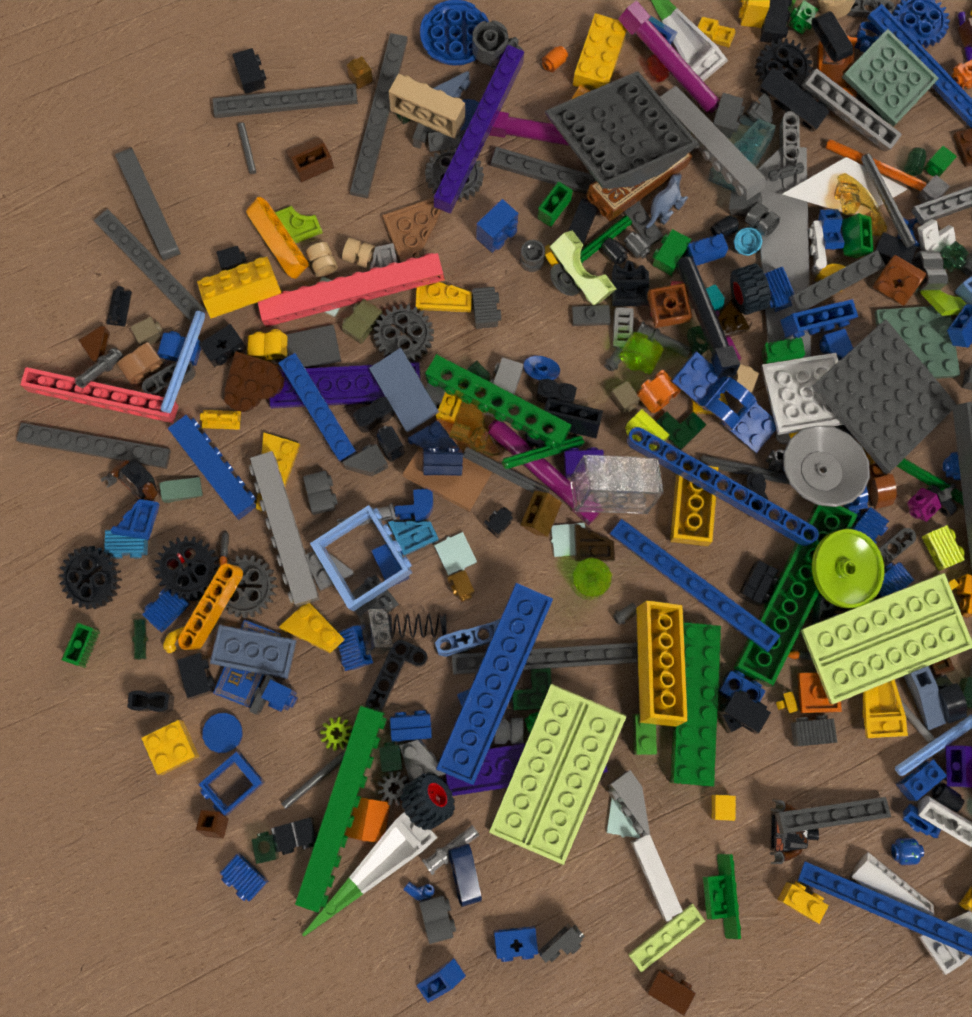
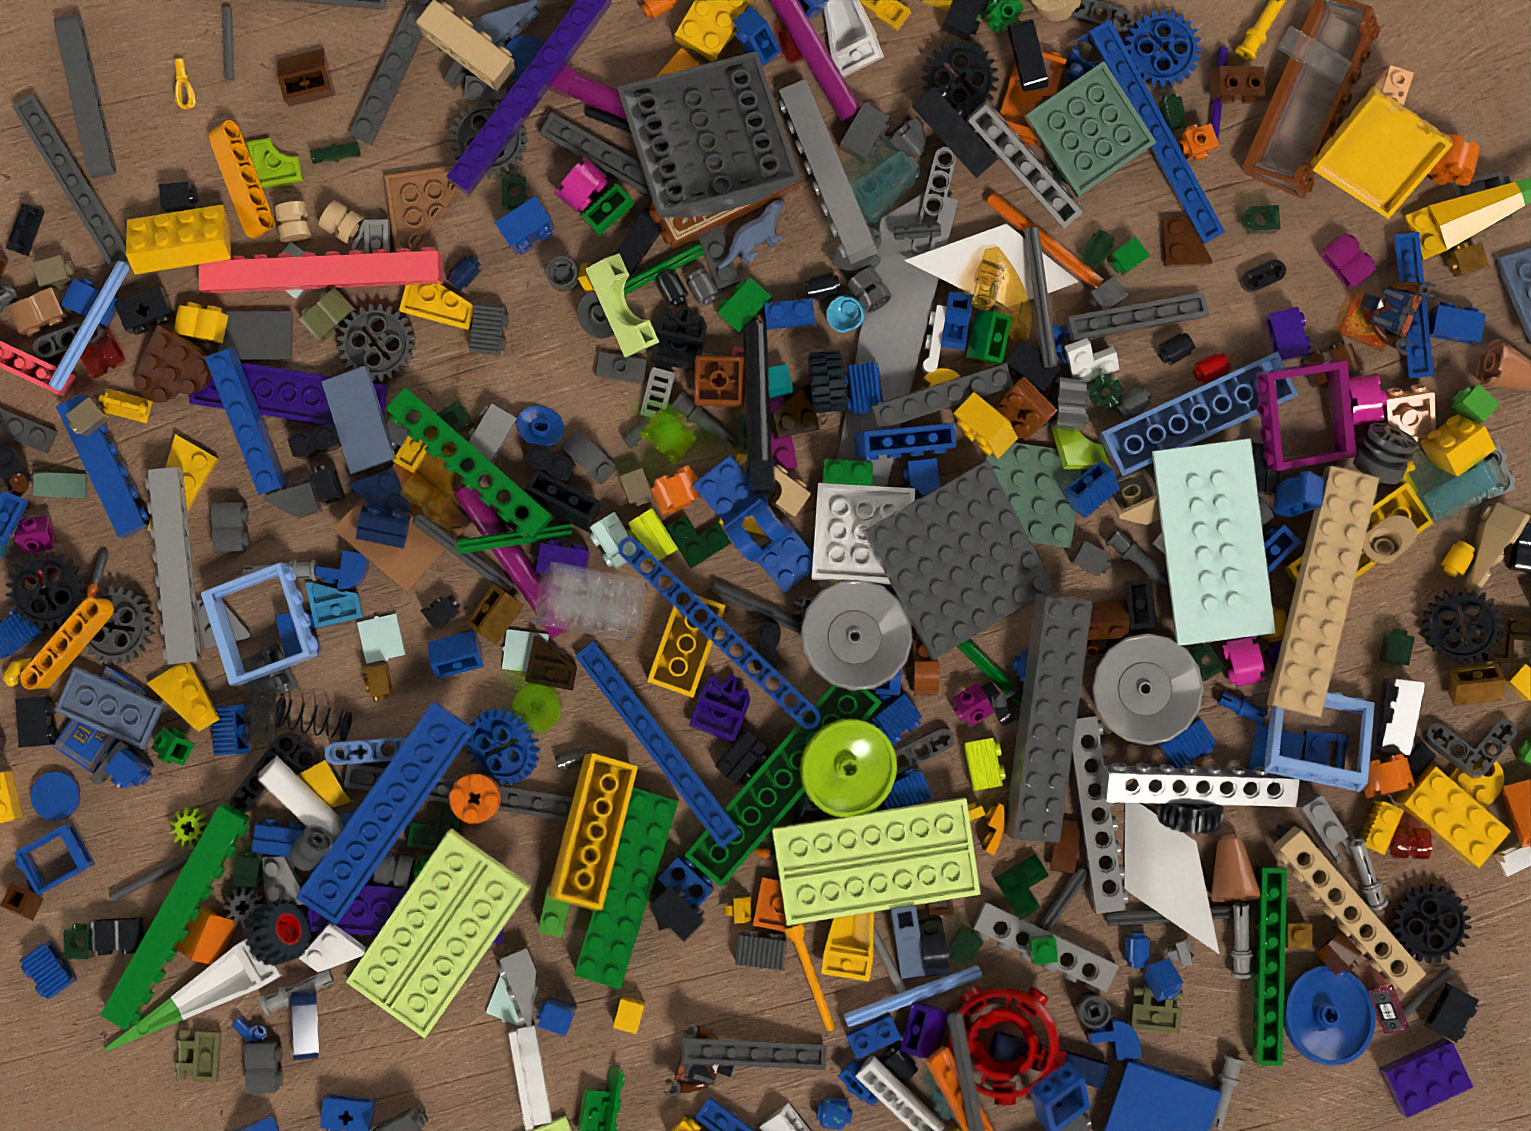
camera: 10 degrees right, 10 degrees up
(168, 529) = (35, 534): none -> magenta brick
(194, 428) = (87, 417): none -> dark tan brick
(196, 386) = (100, 358): none -> clear red wheel
(217, 178) = (182, 77): none -> yellow piece
(310, 670) = (172, 745): none -> green brick
(342, 206) = (335, 152): none -> clear green pin
(388, 921) = (205, 1058): none -> olive plate
(424, 690) = (300, 797): none -> white brick
(432, 678) = (326, 784): none -> yellow brick
(441, 724) = (310, 847): none -> dark grey wheel
(457, 270) = (464, 272): none -> dark blue brick
(472, 807) = (331, 949): none -> white wing
(481, 199) = (514, 179): none -> clear green brick
(518, 551) = (455, 654): none -> blue brick
(532, 190) = (581, 185): none -> dark pink brick
(547, 147) = (608, 119): none -> black bar
(573, 658) = (462, 794): none -> orange brick
(583, 626) = (506, 762): none -> blue gear
(585, 382) = (589, 457): none -> dark grey brick
(615, 438) = (608, 534): none -> light aqua brick
(633, 59) = (756, 35): none -> blue brick
(667, 820) = (556, 1015): none -> blue brick
(732, 550) = (721, 709): none -> dark purple plate
(839, 710) = (796, 934): none -> light orange piece
(876, 296) = (985, 426): none -> yellow brick
(942, 58) = (1172, 111): none -> clear green brick

